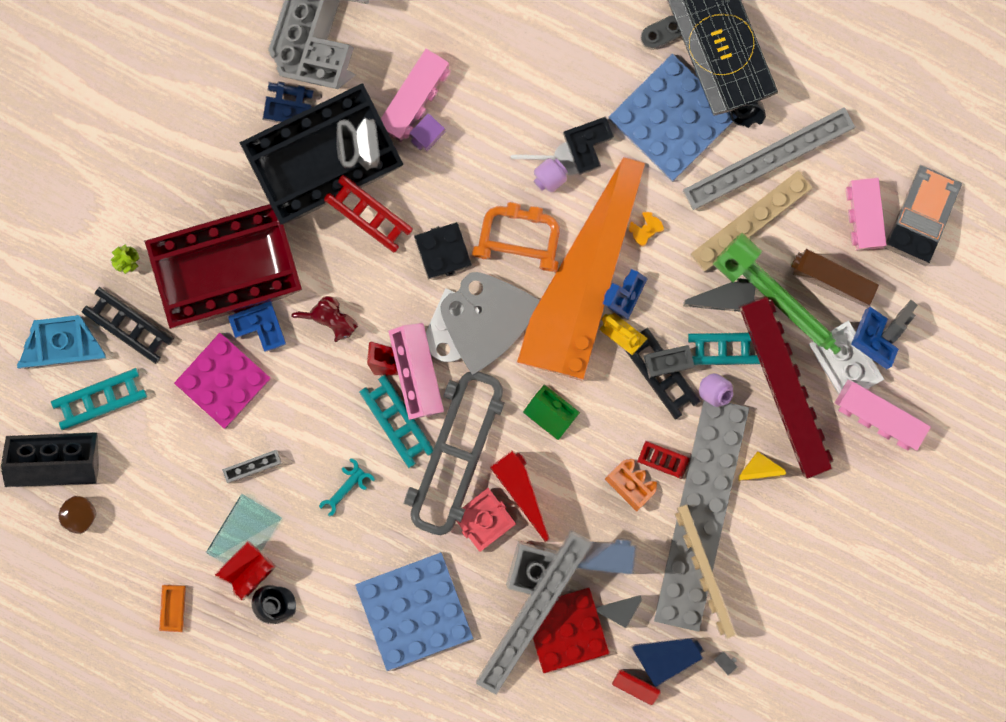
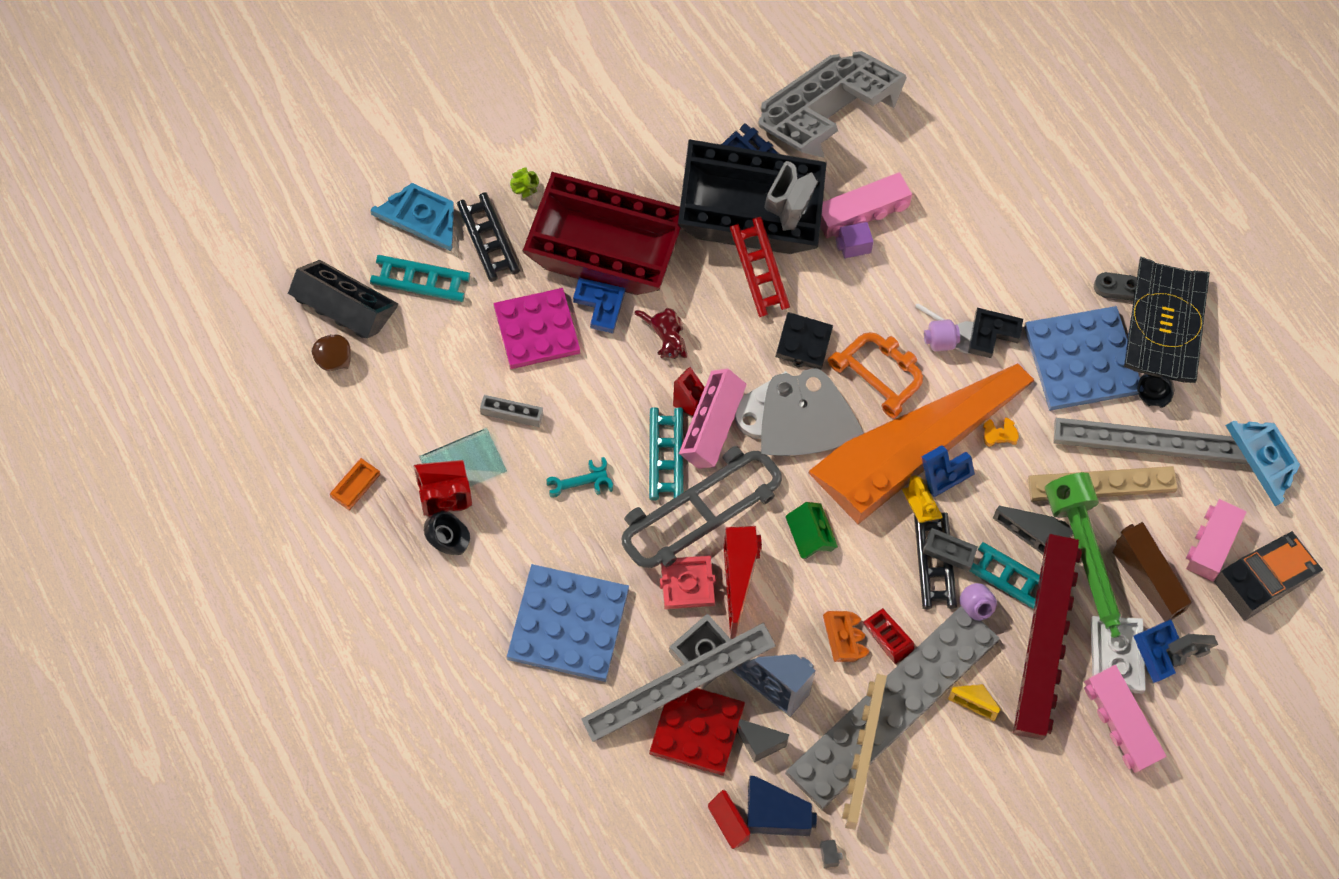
camera: 25 degrees right, 20 degrees down
(867, 115) = (1267, 456): none -> dark azure wing

